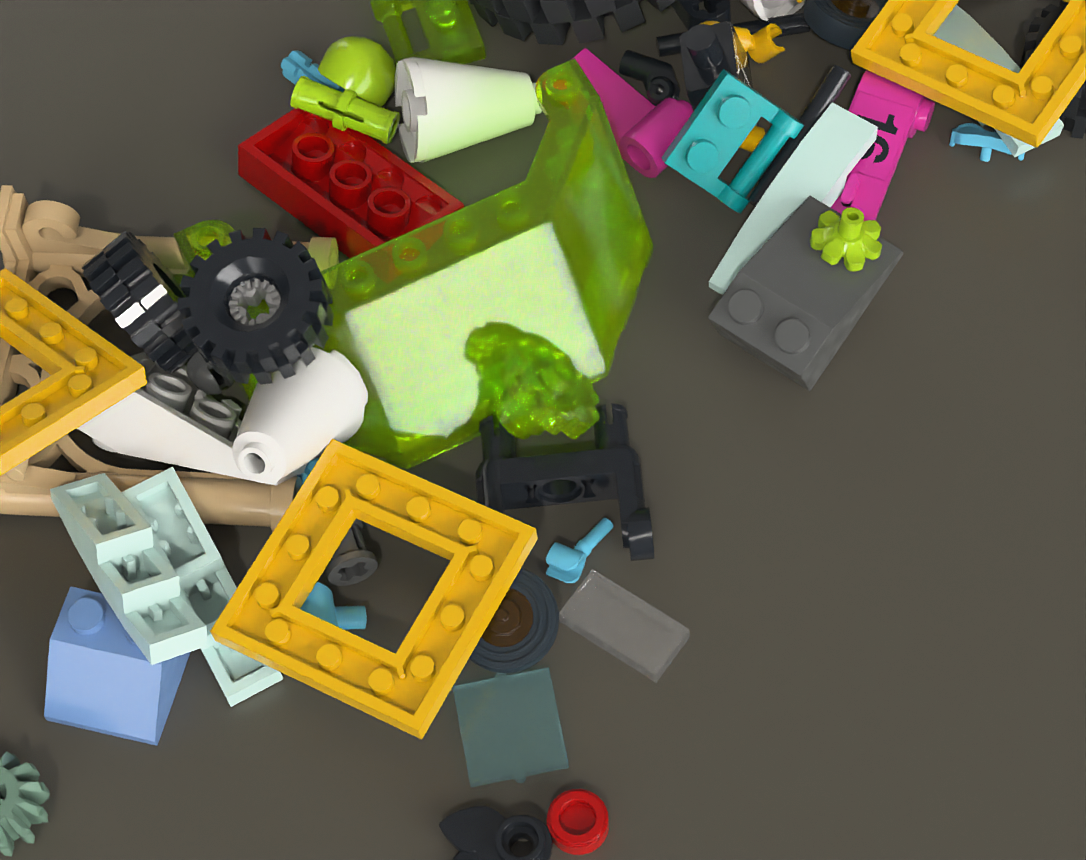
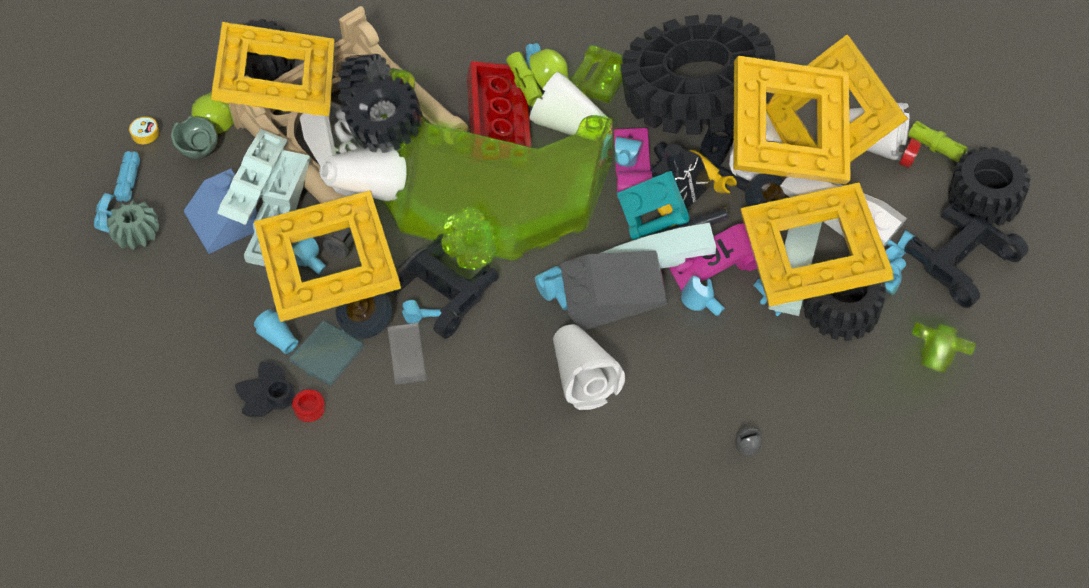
camera: 40 degrees right, 5 degrees down
(408, 761) = (275, 332): none -> medium azure cone
(612, 94) = (627, 151): none -> medium azure piece
(712, 360) = (551, 286): none -> medium azure piece
(846, 238) = (645, 276): lime plant -> none
(889, 427) = (585, 368): none -> white cone
(907, 210) = (697, 296): none -> medium azure piece

